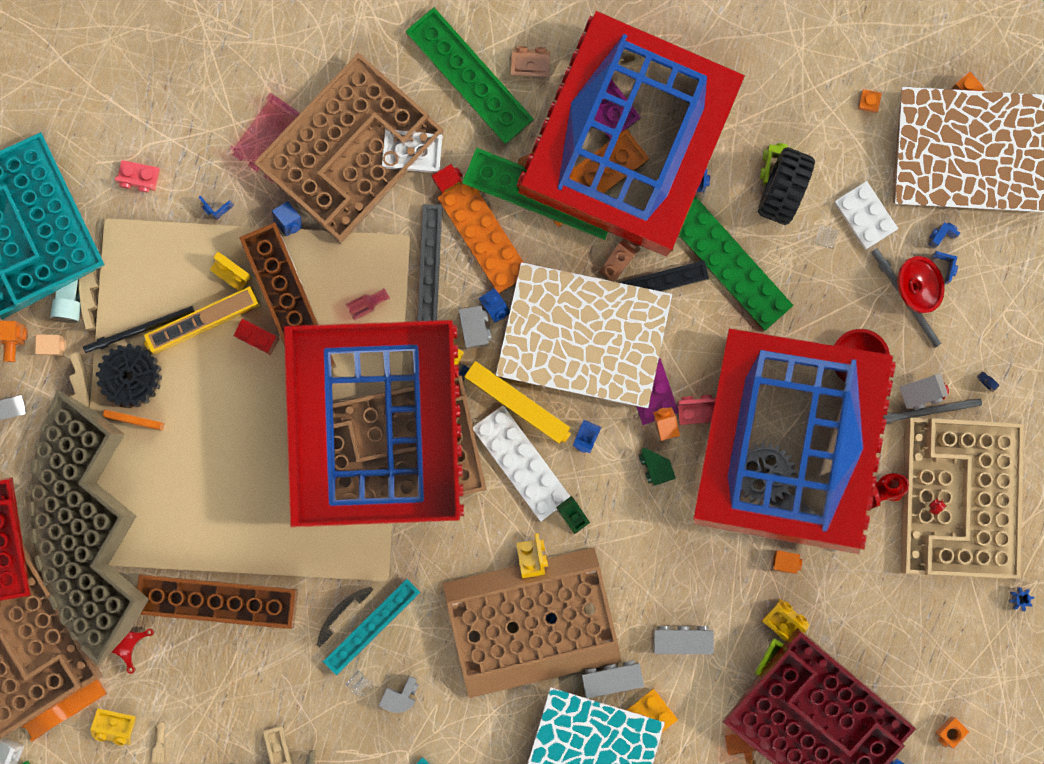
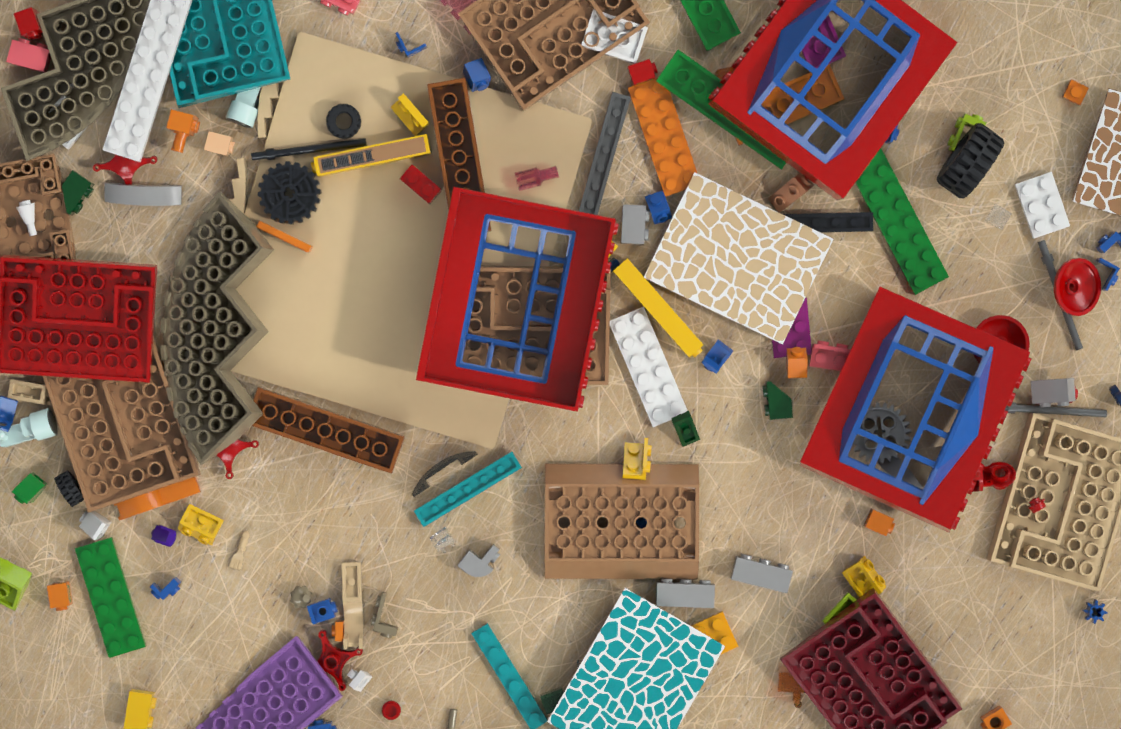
camera: 15 degrees right, 5 degrees up
(79, 746) = (163, 535): none -> dark purple piece
(175, 302) = (331, 121): none -> black tyre

